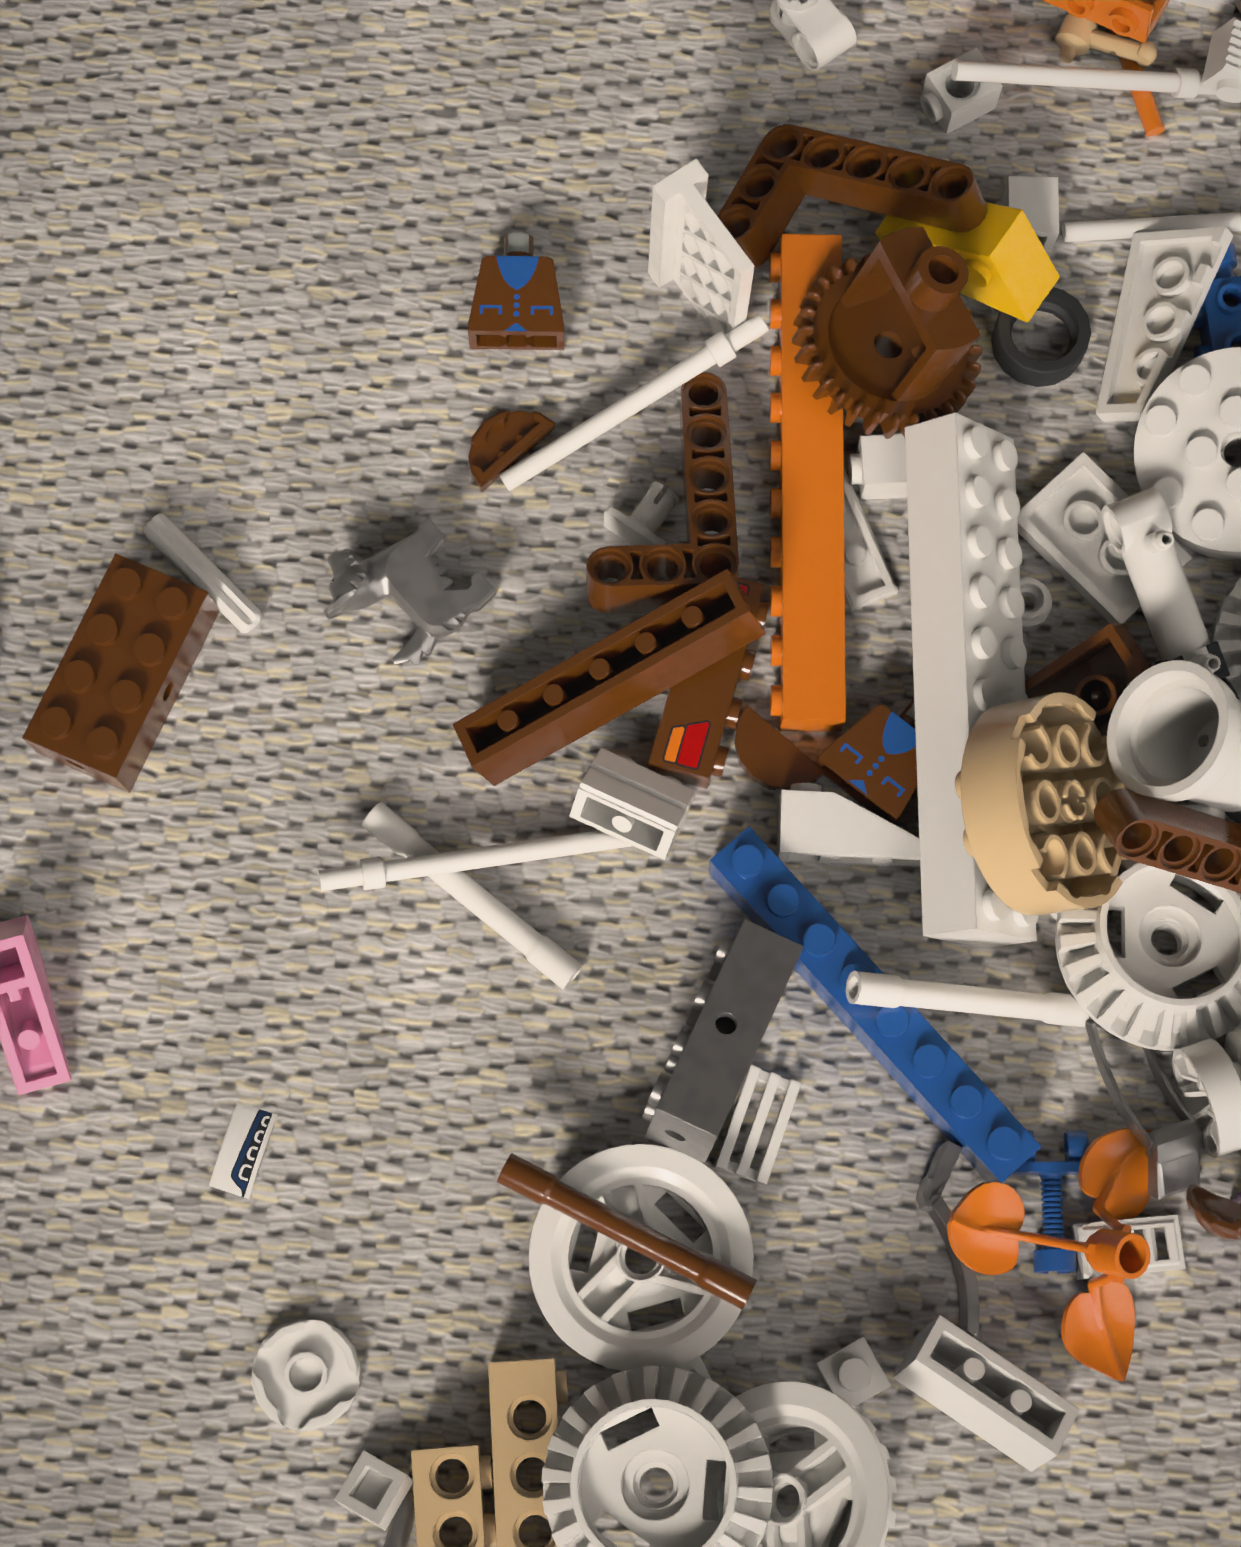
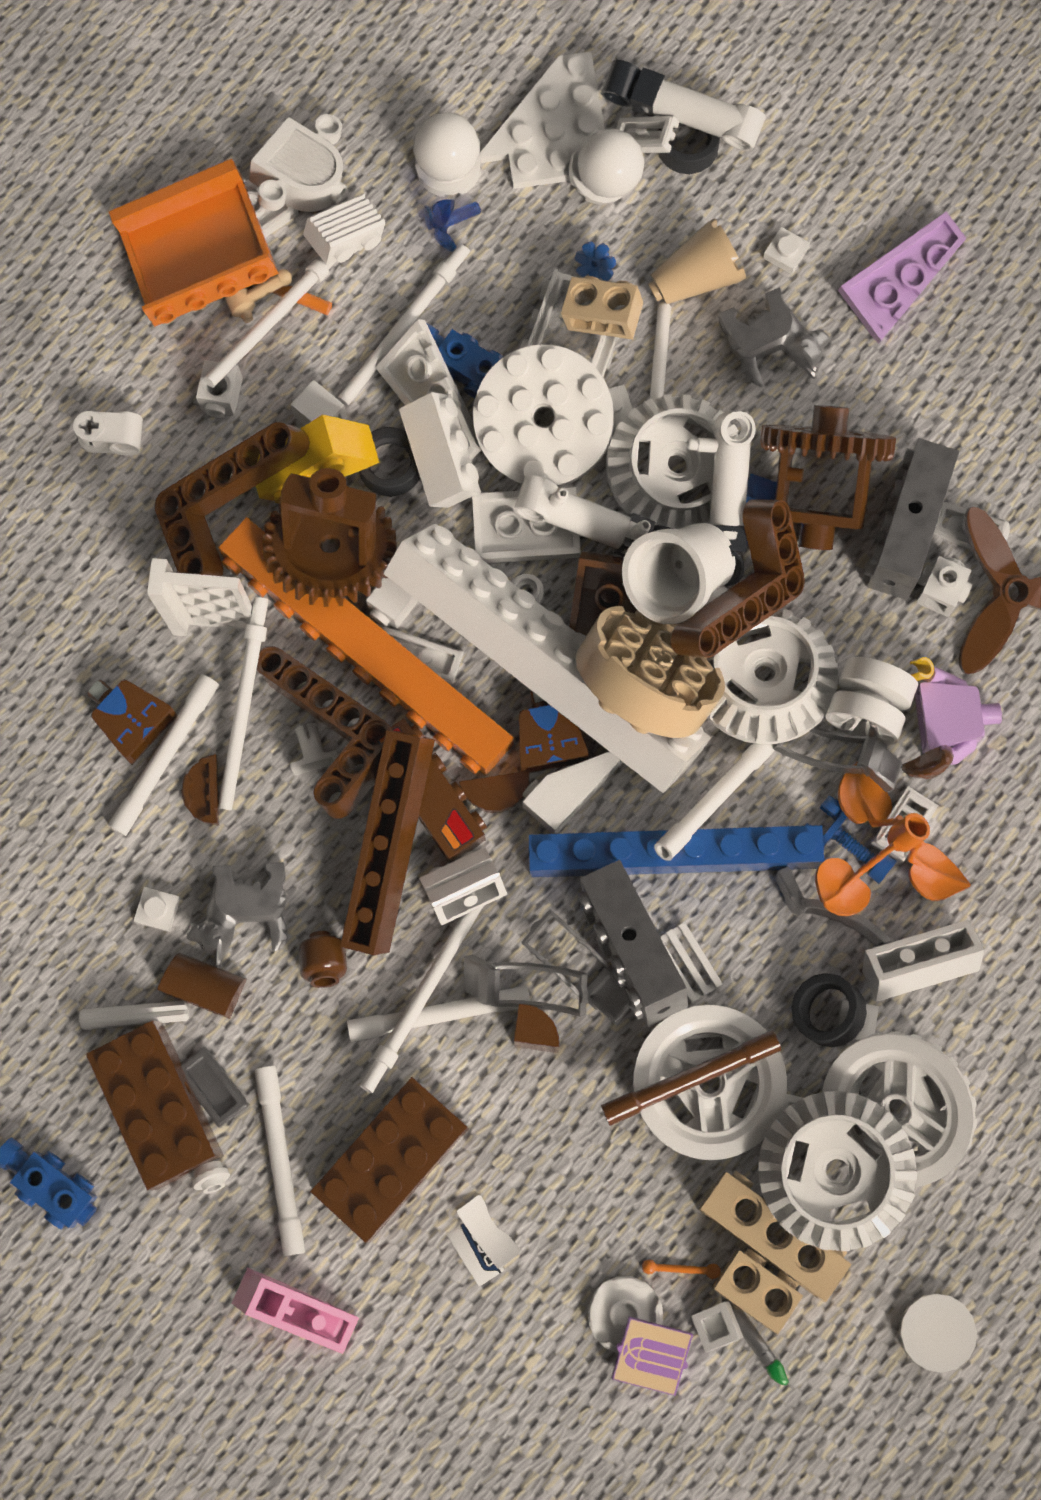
camera: 45 degrees left, 0 degrees up
(93, 795) = (210, 1177): none -> white plate
(113, 920) = (289, 1222): none -> white piece
(193, 721) = (213, 1087): none -> flat silver tile
(265, 972) = (389, 1160): none -> reddish brown brick
(270, 1158) = (492, 1240): none -> white sticker
(283, 1441) = (652, 1356): none -> piece
(293, 616) = (202, 985): none -> reddish brown brick
(335, 503) = (157, 909): none -> white plate
(424, 719) = (322, 959): none -> reddish brown head
(427, 383) = (133, 804): none -> white piece
(433, 1434) = (711, 1271): none -> orange hinge
(535, 1012) = (535, 1030): none -> reddish brown brick
(542, 914) = (483, 982): none -> flat silver piece
(645, 1056) = (604, 991): none -> flat silver piece
(832, 1291) = (807, 994): none -> black tyre
(1100, 374) = (440, 450): none -> white brick

